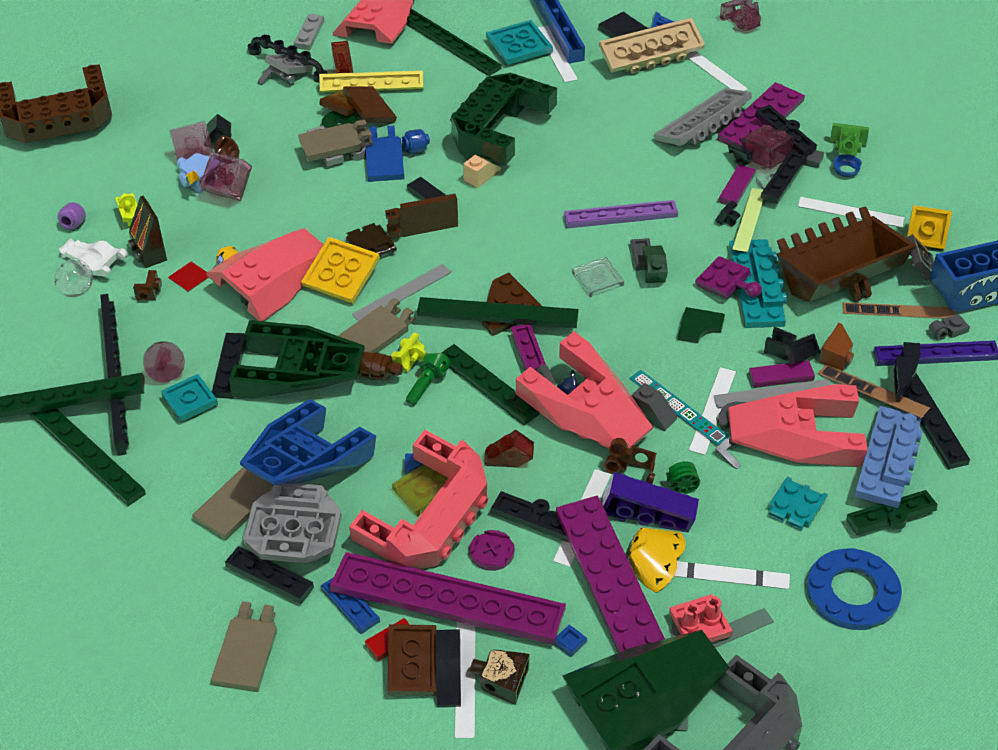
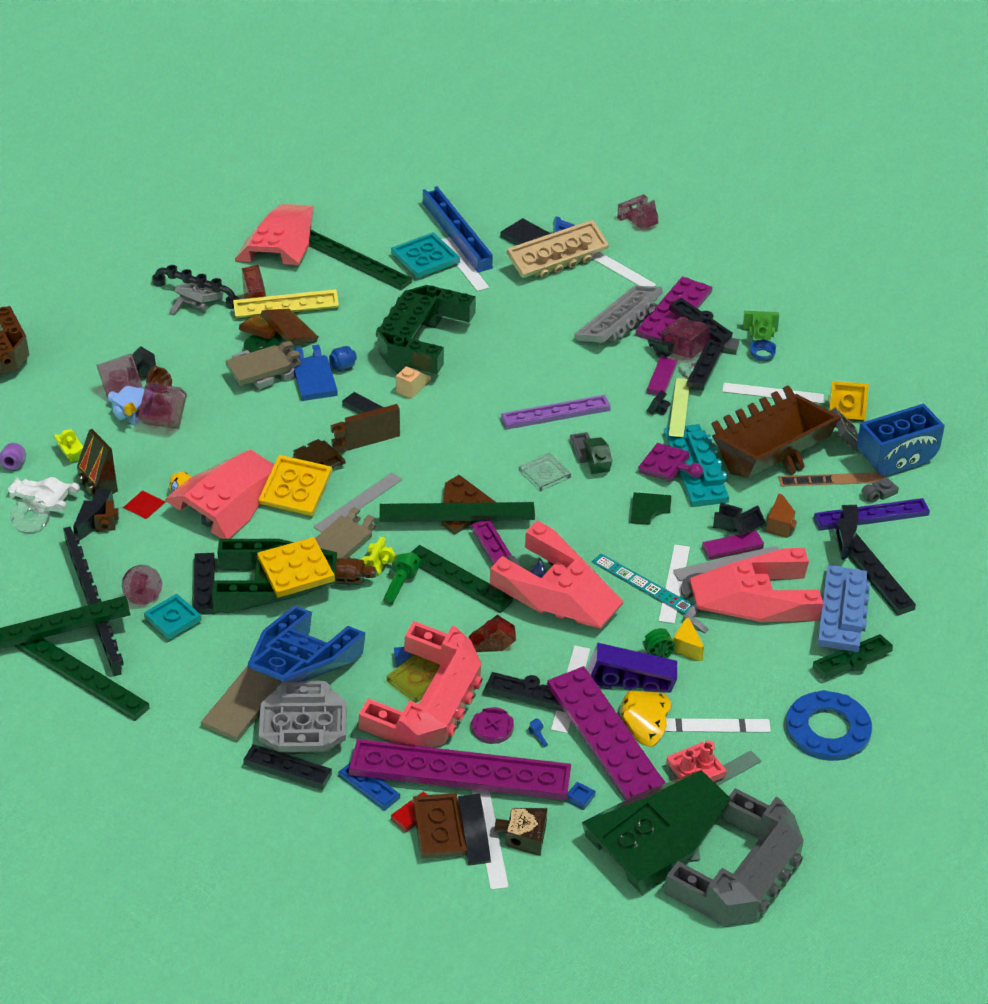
camera: 10 degrees left, 5 degrees down
(124, 291) = (85, 520): none -> black slope
(245, 649) = (280, 834): dark tan tile -> none
(309, 31) = (211, 258): light grey plate -> none
(318, 358) = (296, 567): none -> yellow plate
(535, 558) = (534, 729): none -> blue hand
(623, 456) = (601, 630): reddish brown piece -> none
(654, 406) = (621, 583): dark grey slope -> none
(714, 477) = (688, 642): none -> yellow slope
(796, 503) = (765, 658): teal plate -> none
(873, 390) = (820, 552): medium nougat sticker -> none

